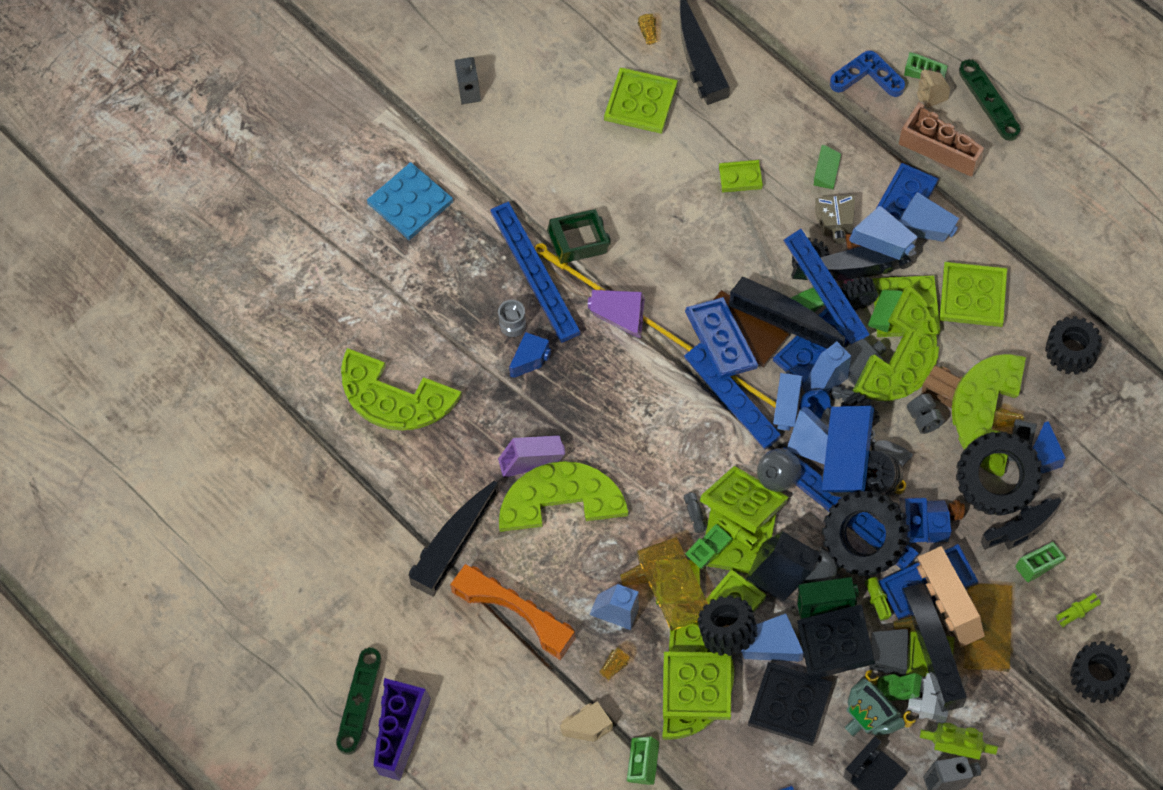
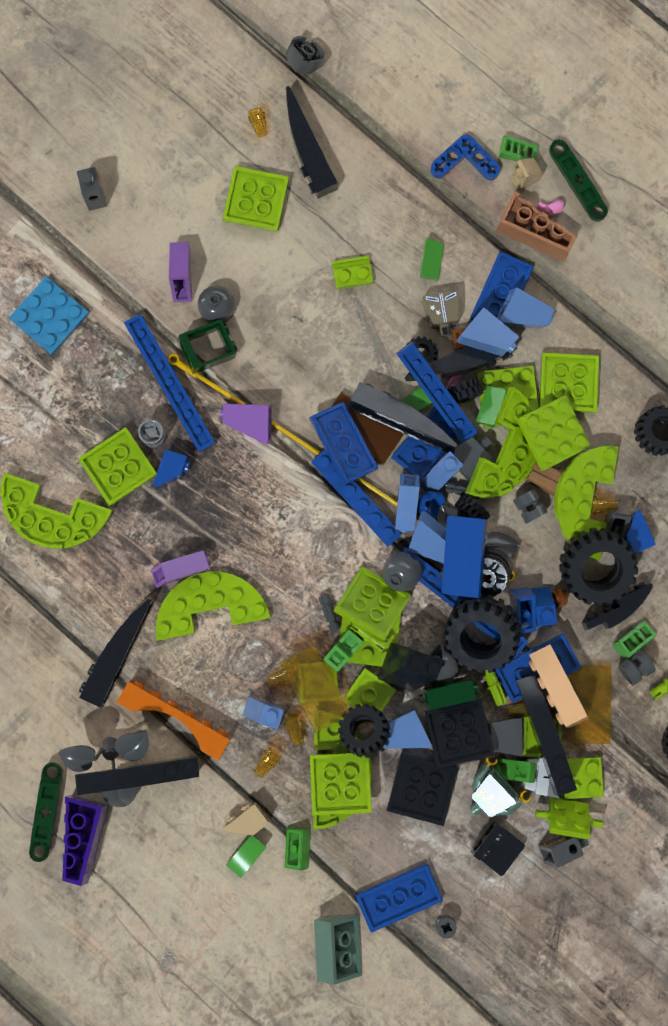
camera: 10 degrees left, 20 degrees up
(406, 630) = (131, 745): none -> dark grey plant
(470, 657) = (137, 775): none -> black slope
(471, 350) = (117, 466): none -> lime plate
(555, 165) = (180, 272): none -> medium lavender slope
(582, 762) = (246, 856): none -> bright green slope
(591, 195) = (216, 304): none -> dark grey cylinder
(648, 630) = (294, 728): none -> clear yellow cone
(952, 338) = (553, 433): none -> lime plate
(962, 124) = (552, 208): none -> bright pink arm
(980, 707) = (587, 777): none -> lime plate
(1043, 586) = (638, 666): none -> dark grey wheel

